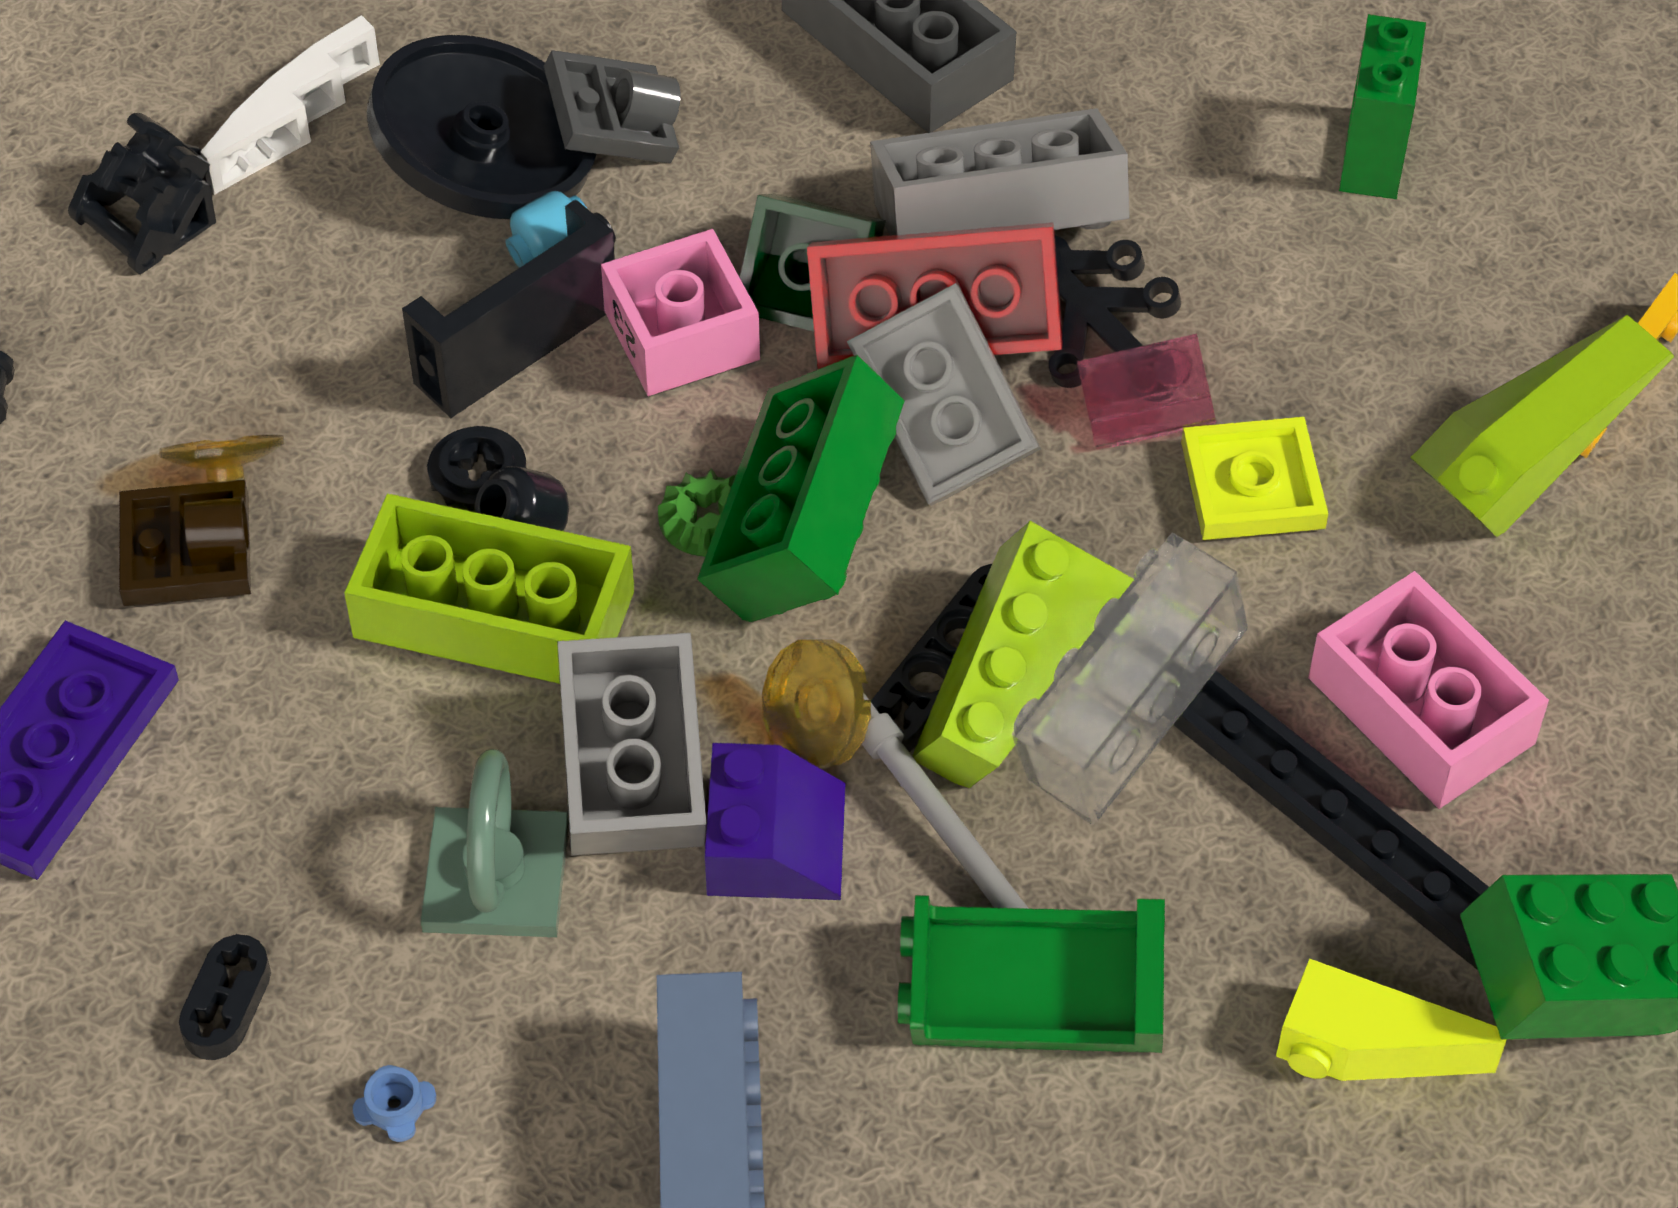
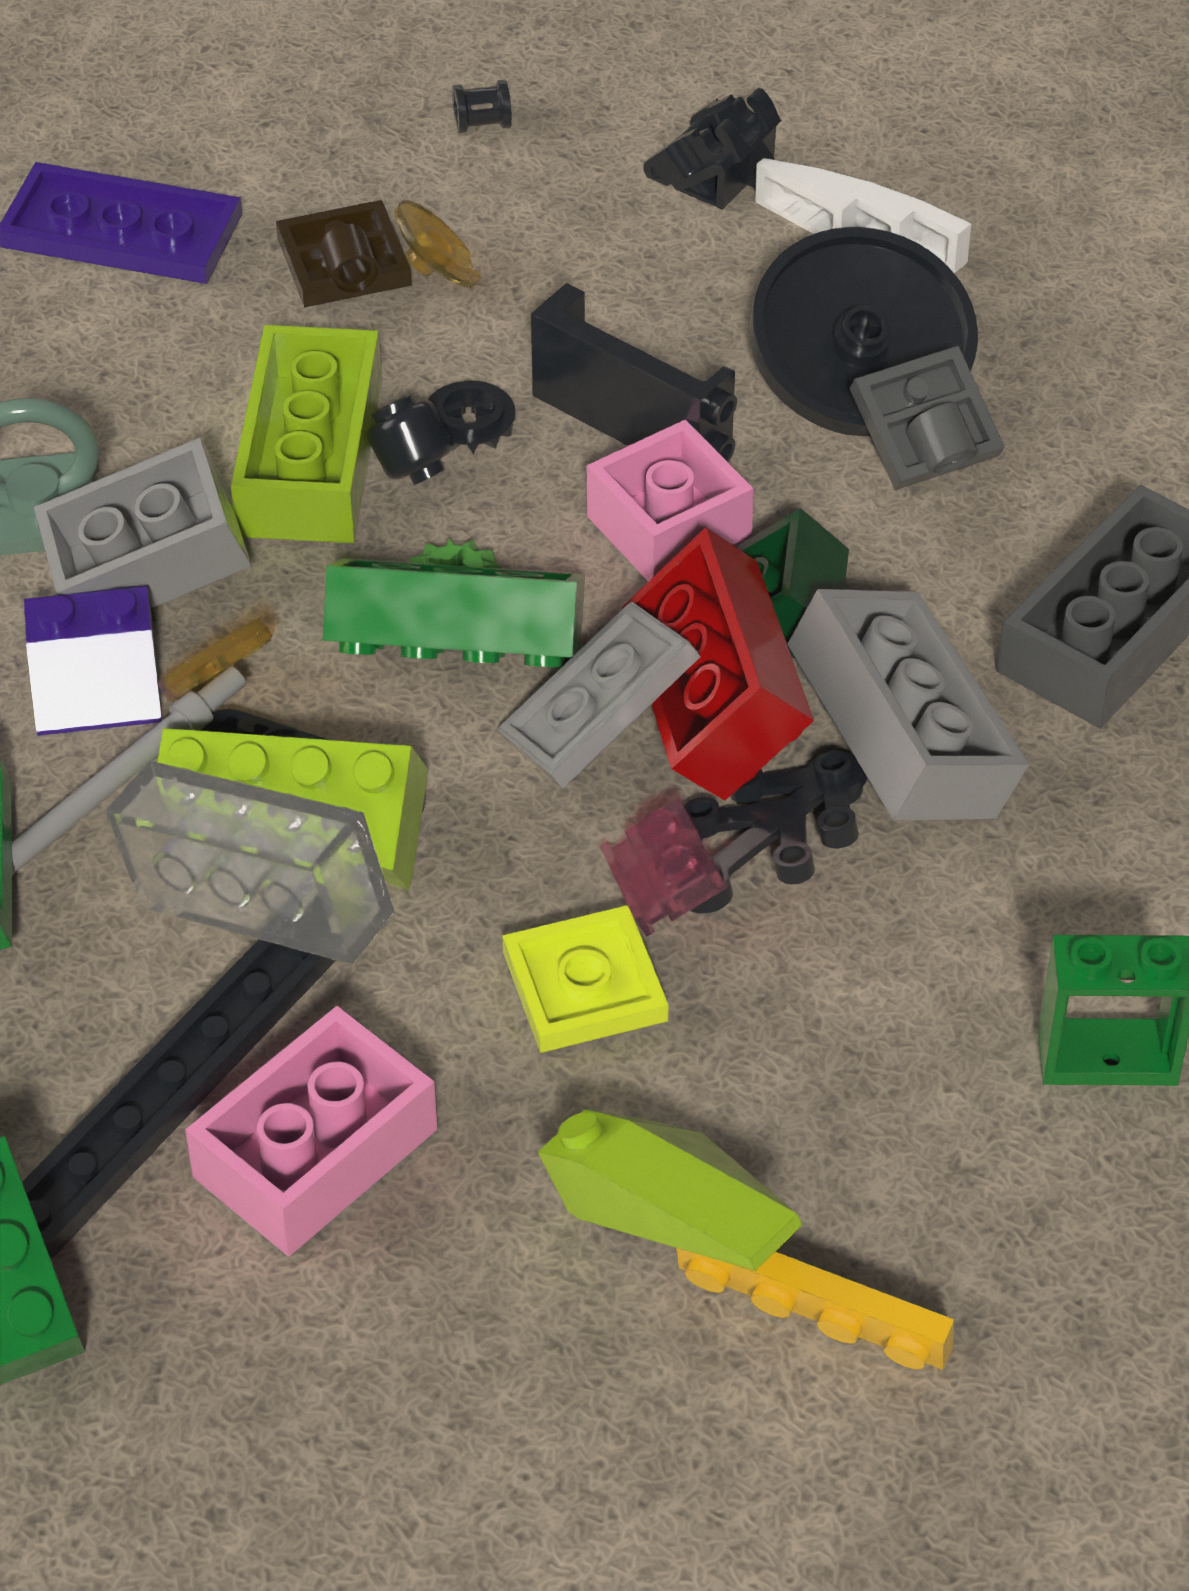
camera: 80 degrees right, 5 degrees down
(538, 226) = (762, 409): medium azure head -> none

